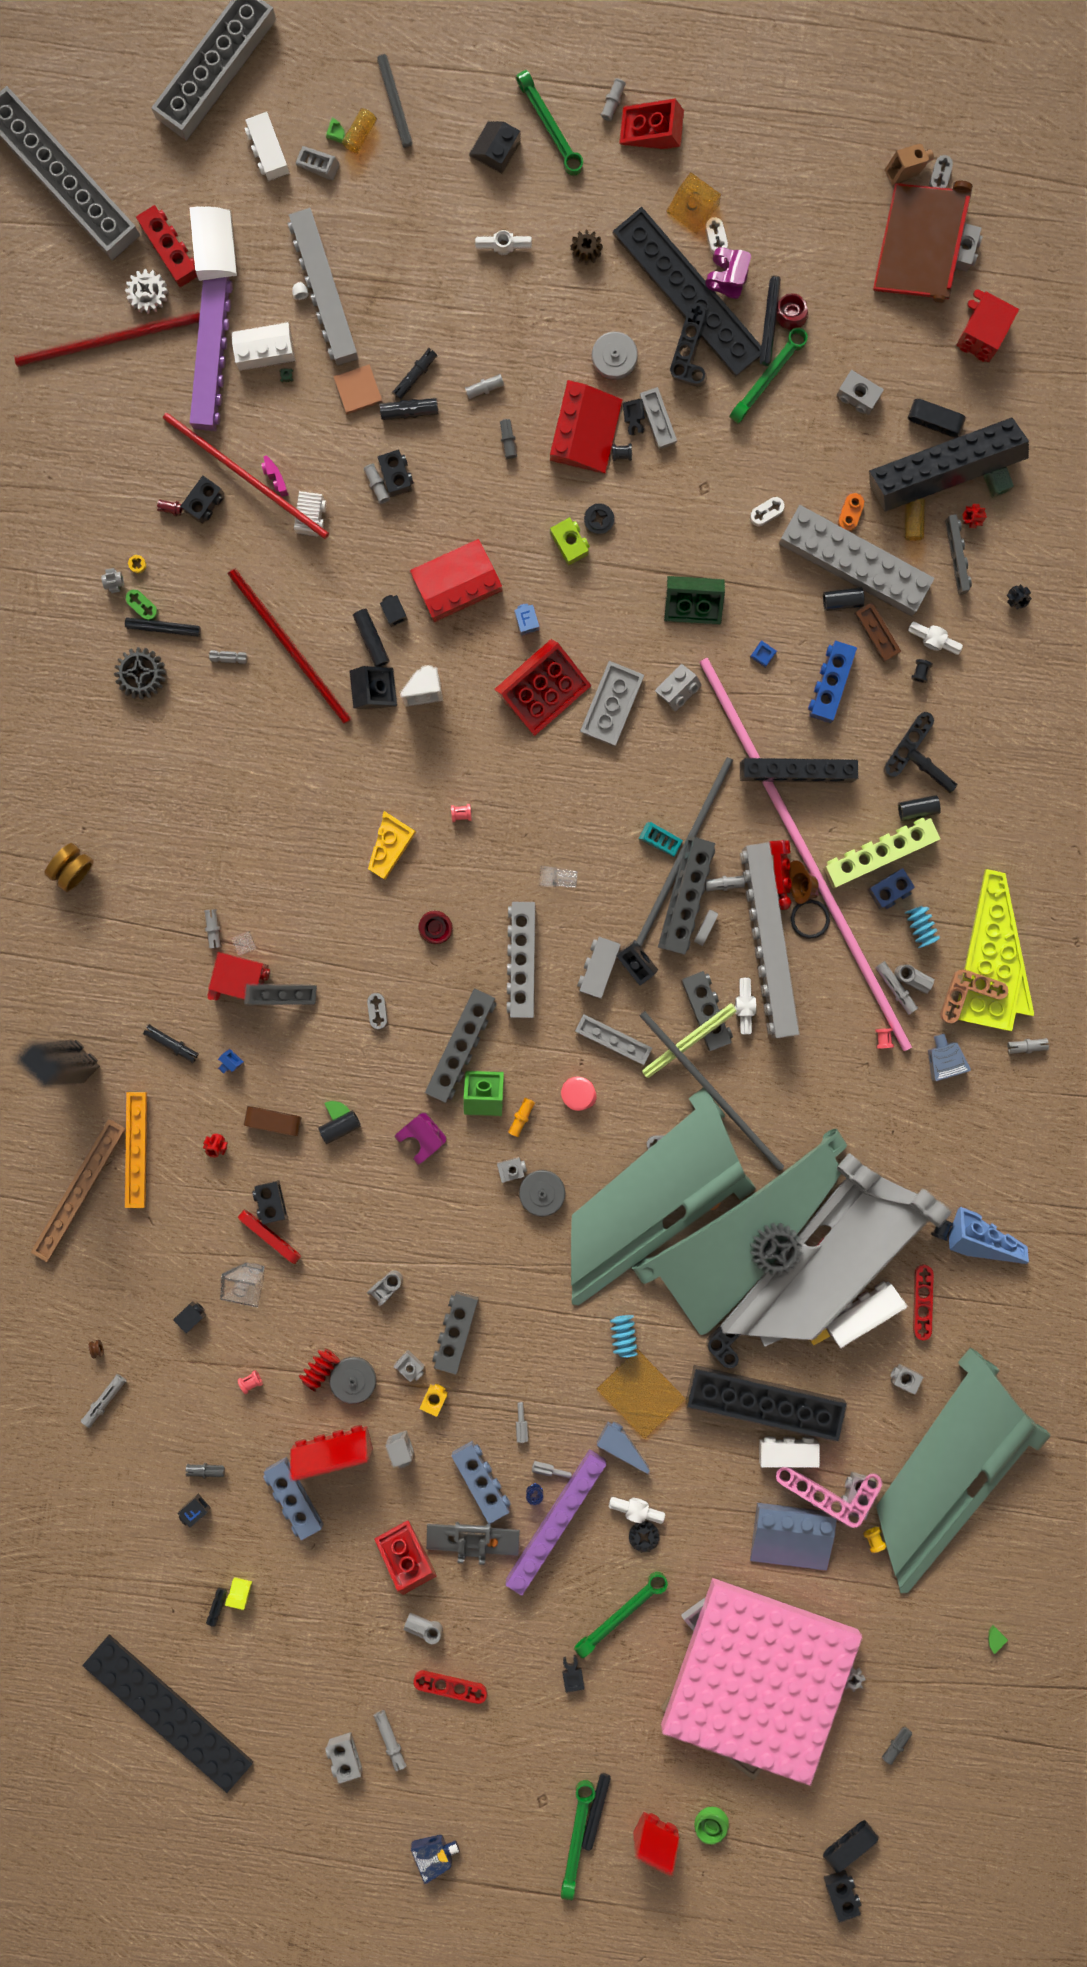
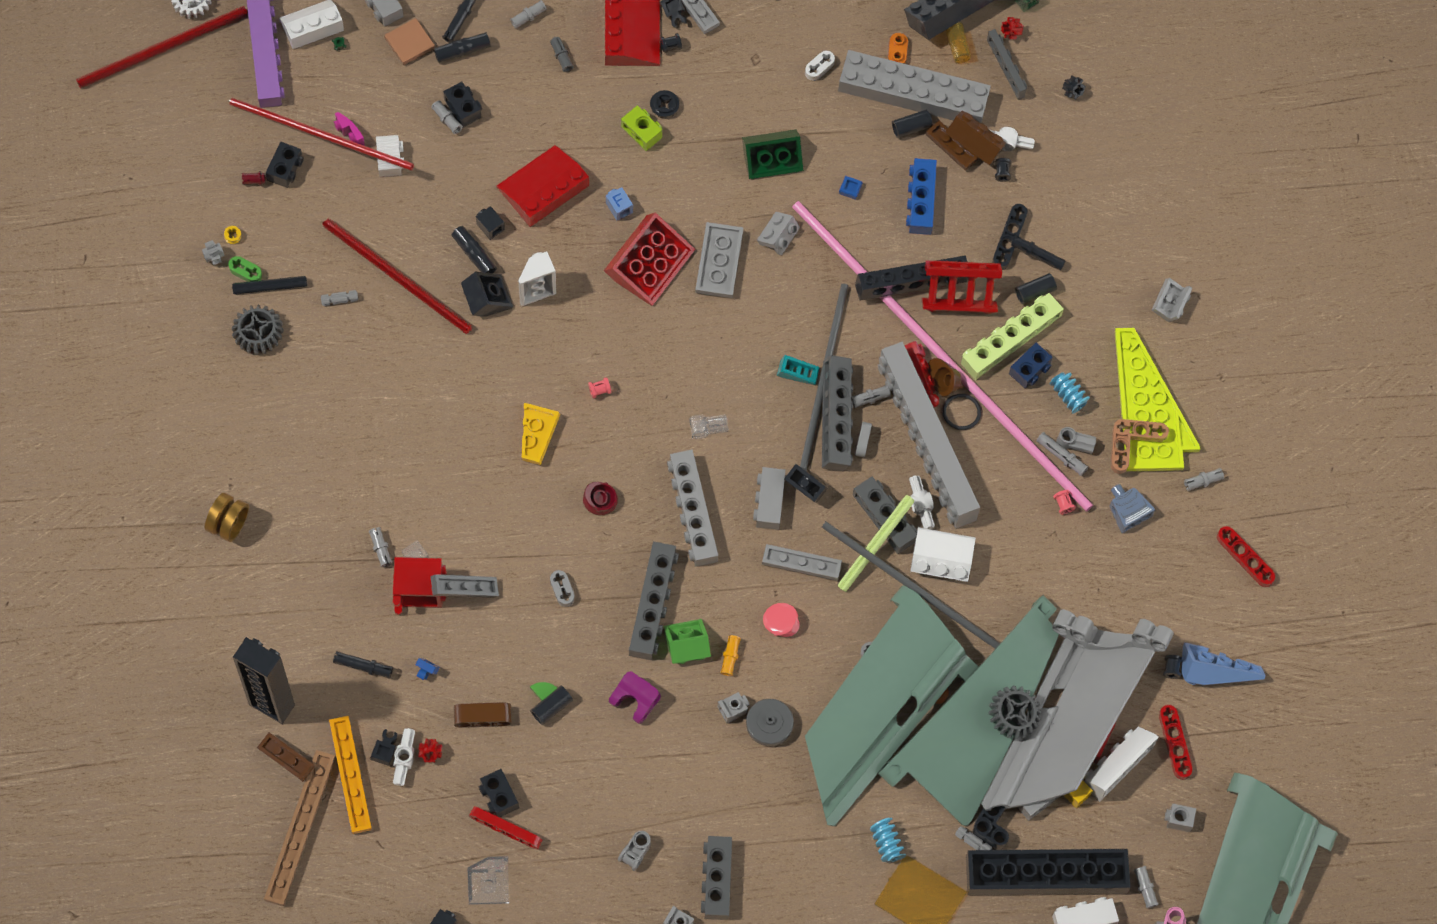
camera: 20 degrees left, 20 degrees down
(78, 1119) = (286, 756): none -> reddish brown plate
(171, 1133) = (384, 750): none -> black plate
(186, 1154) = (404, 748): none -> white axle
(705, 1353) = (972, 839): none -> light grey axle
(751, 1068) = (943, 554): none -> white slope
(850, 779) = (961, 269): none -> red fence
(854, 1436) = (1146, 887): none -> light grey pin
(903, 631) = (976, 137): none -> reddish brown brick
(1046, 1133) = (1248, 554): none -> red beam
(1051, 852) = (1171, 300): none -> light grey bracket

